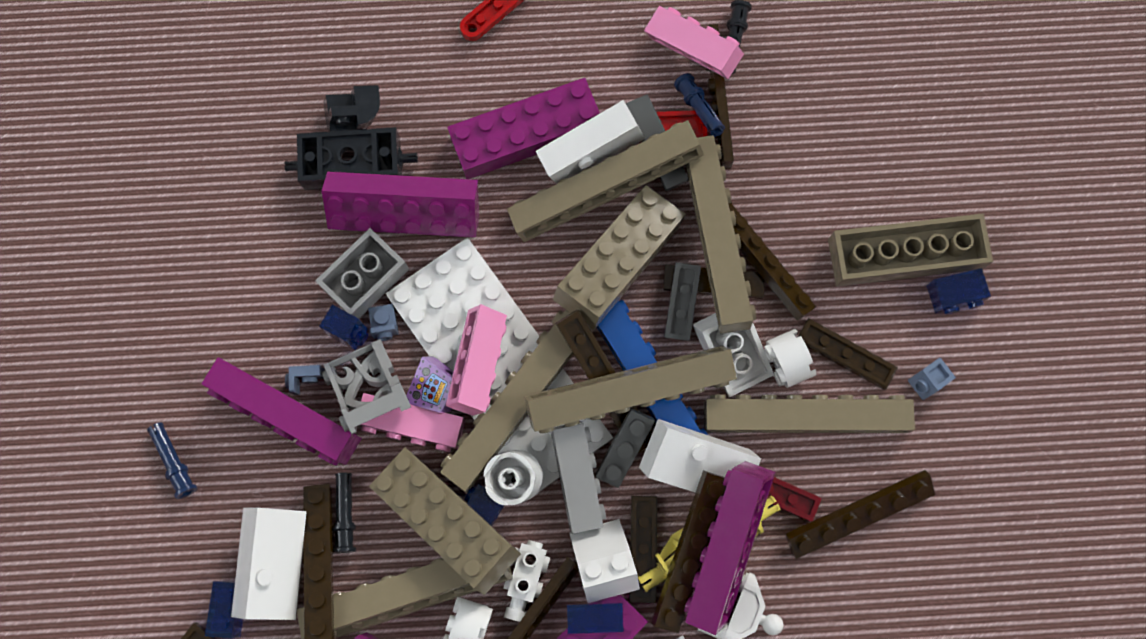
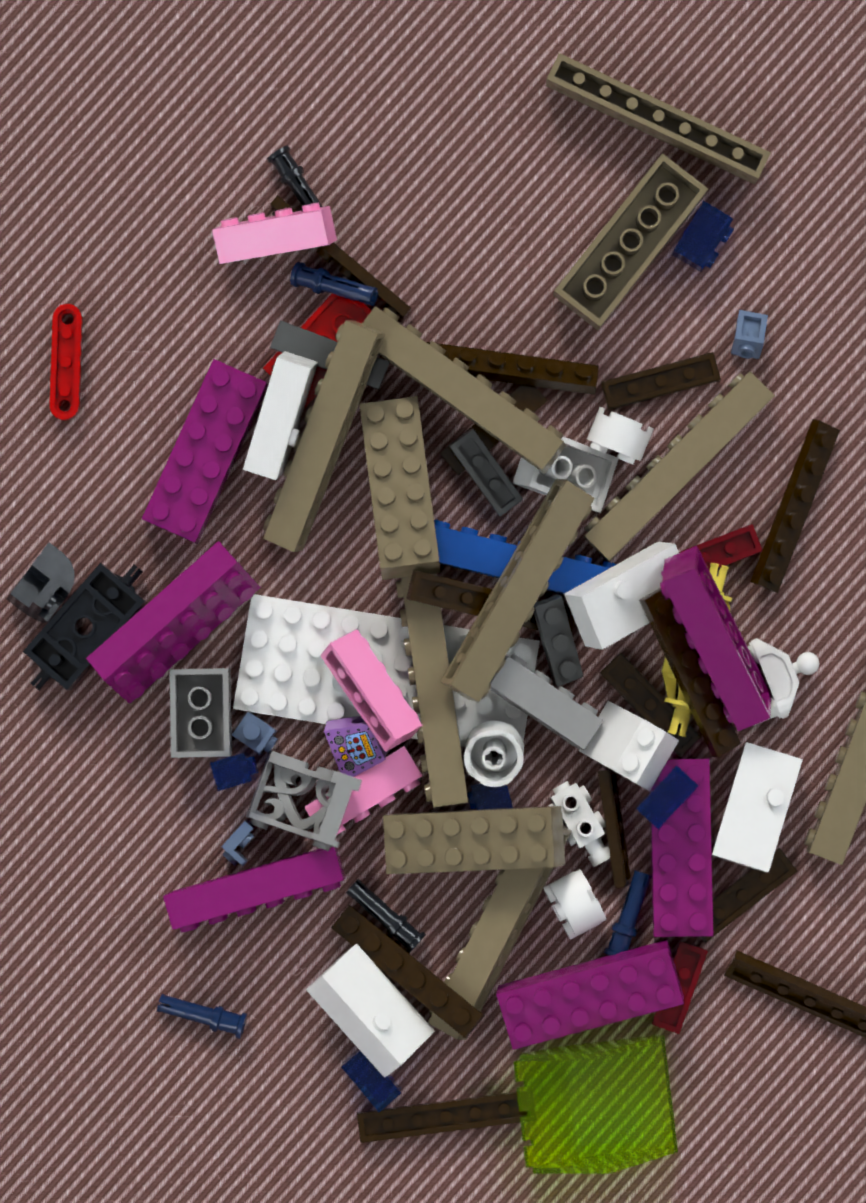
camera: 40 degrees left, 10 degrees up
(997, 195) = (657, 118): none -> dark tan brick

